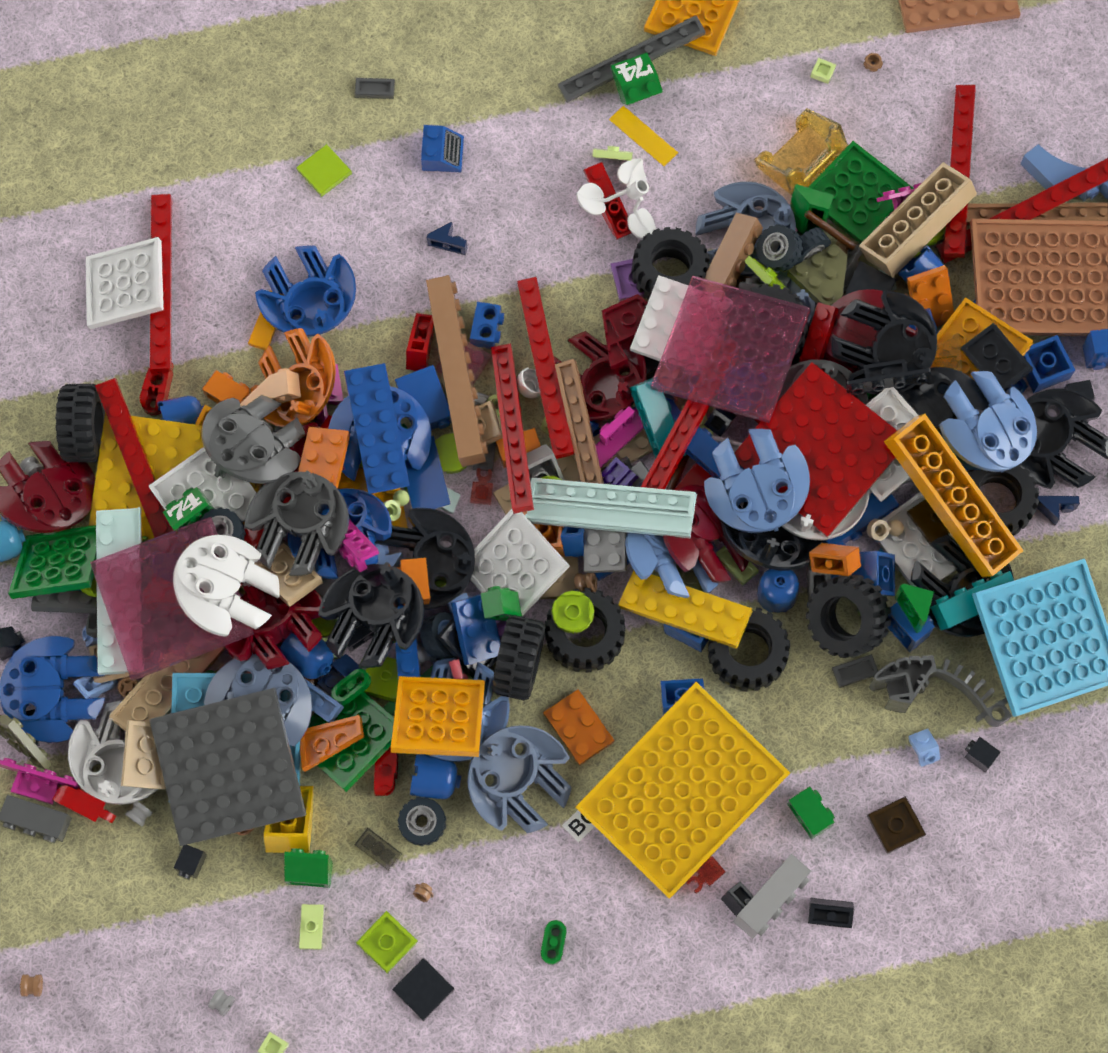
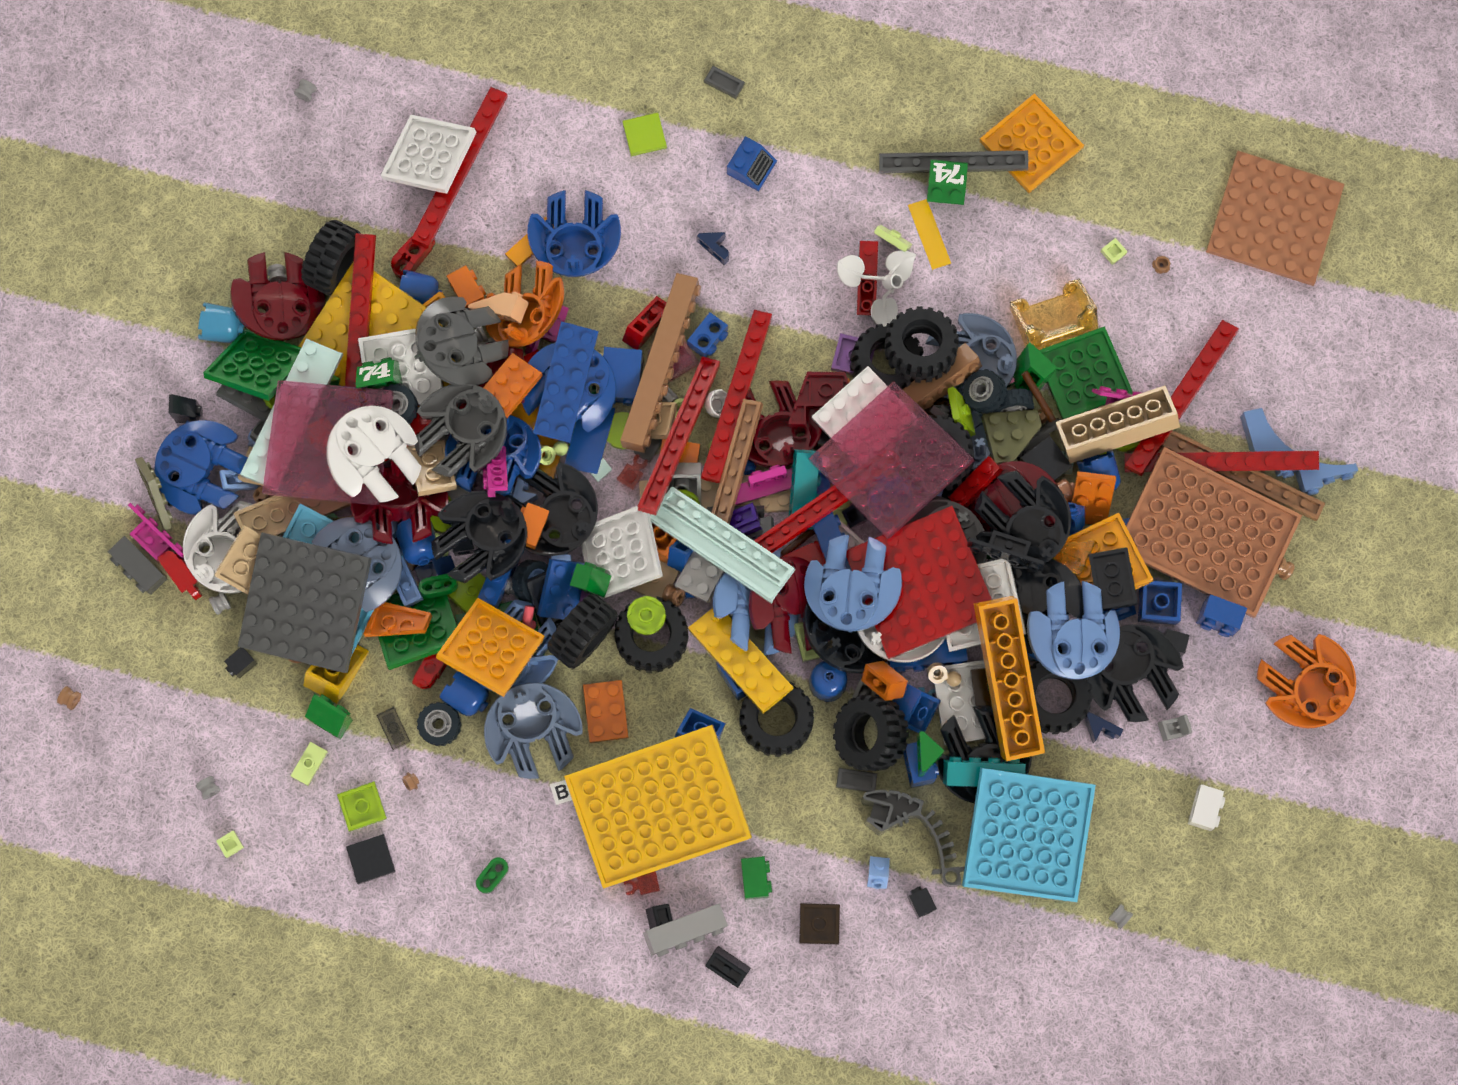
camera: 25 degrees right, 5 degrees up
(692, 209) = (925, 322): none -> black tyre

